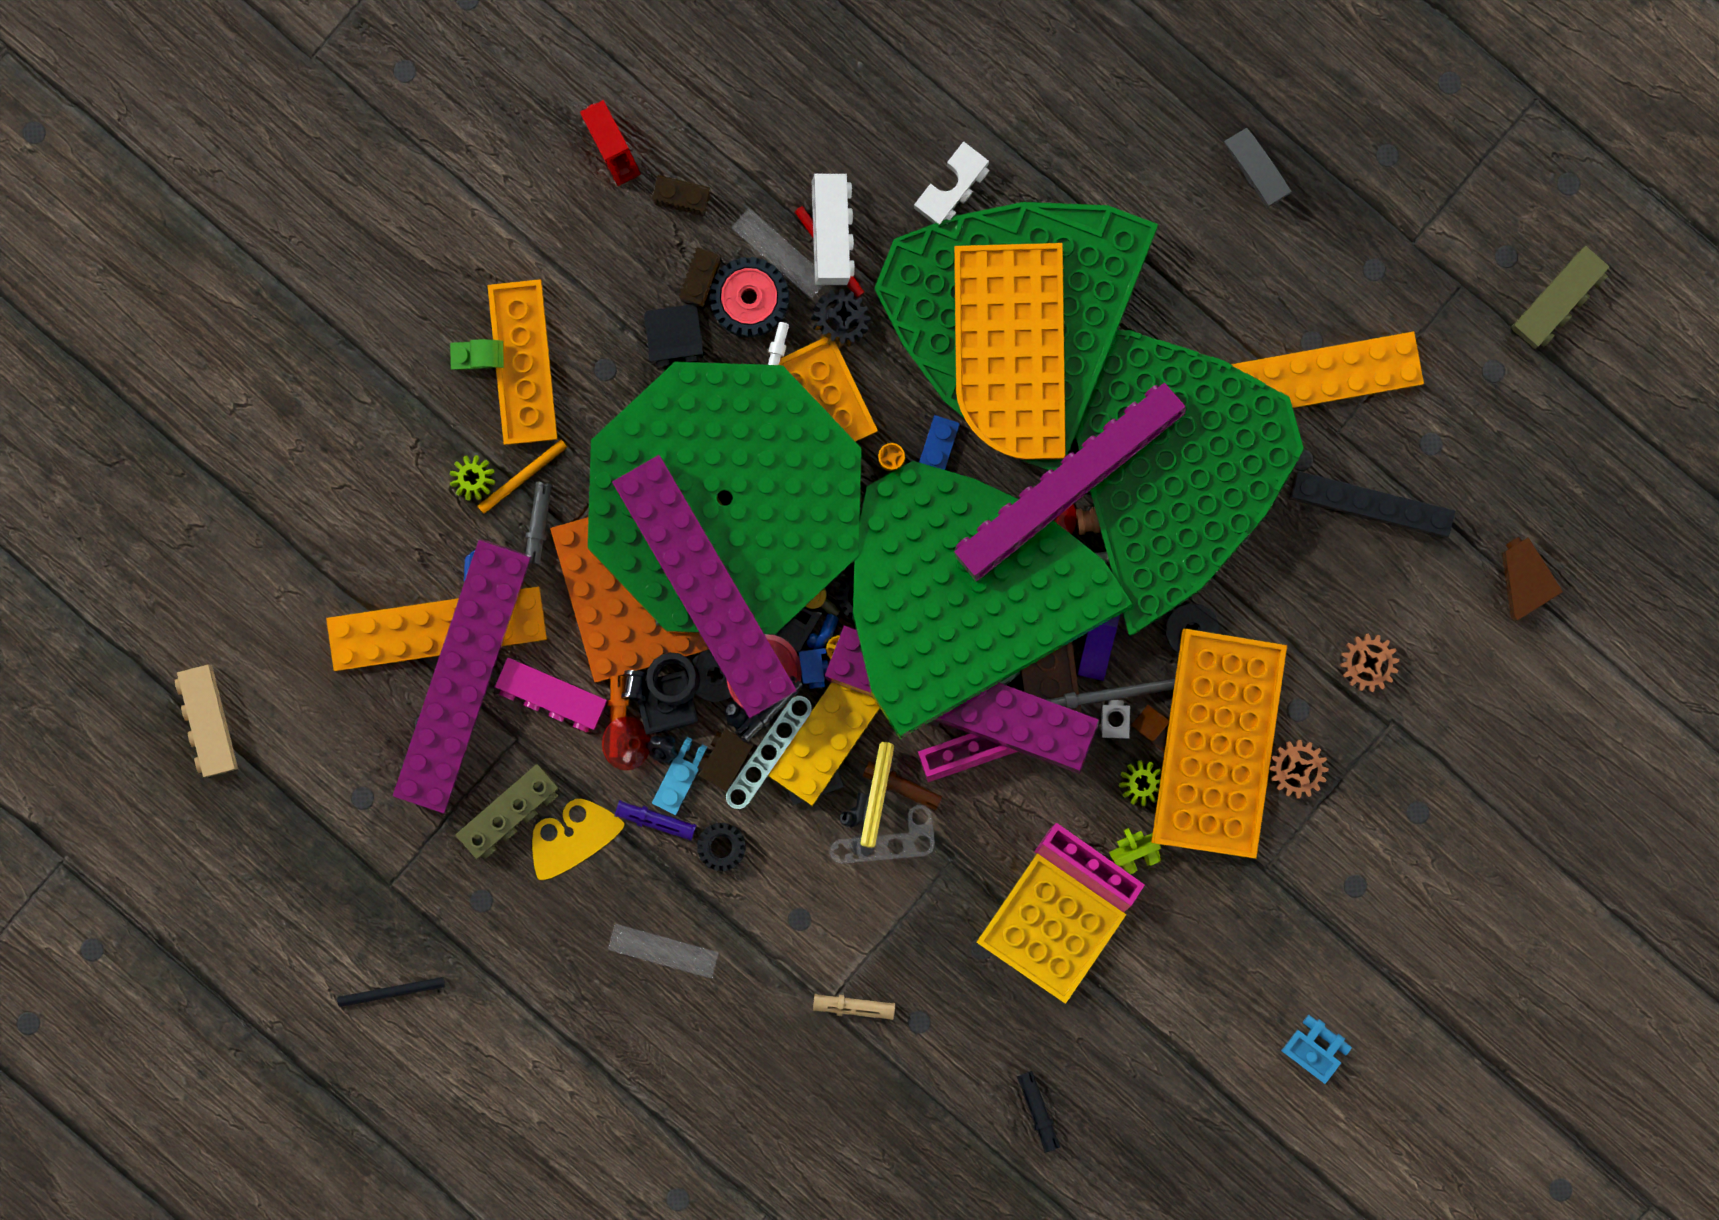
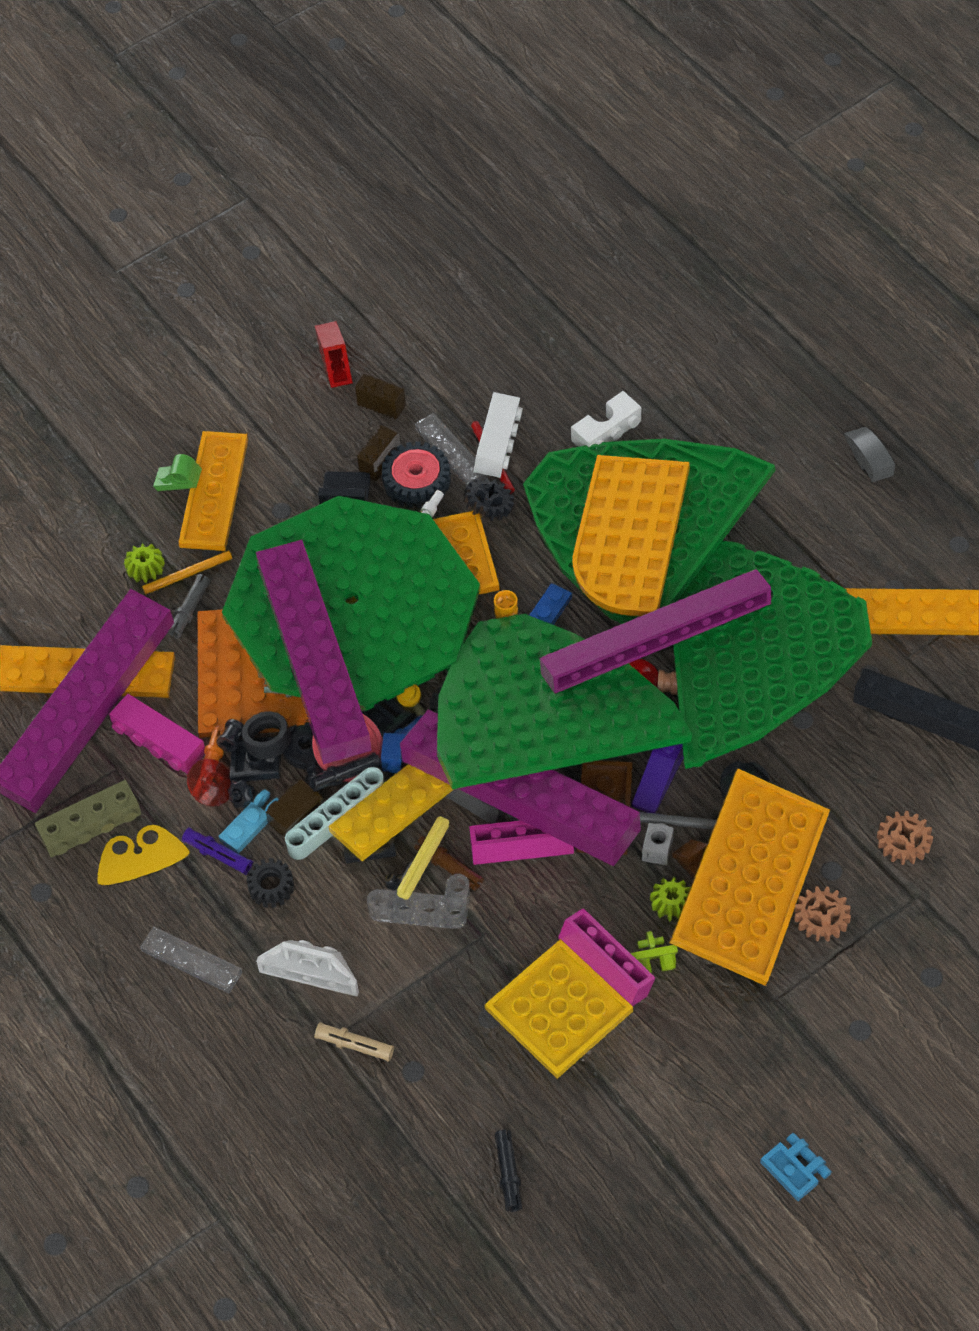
camera: 15 degrees right, 30 degrees down
(789, 933) = (309, 965): none -> white wedge

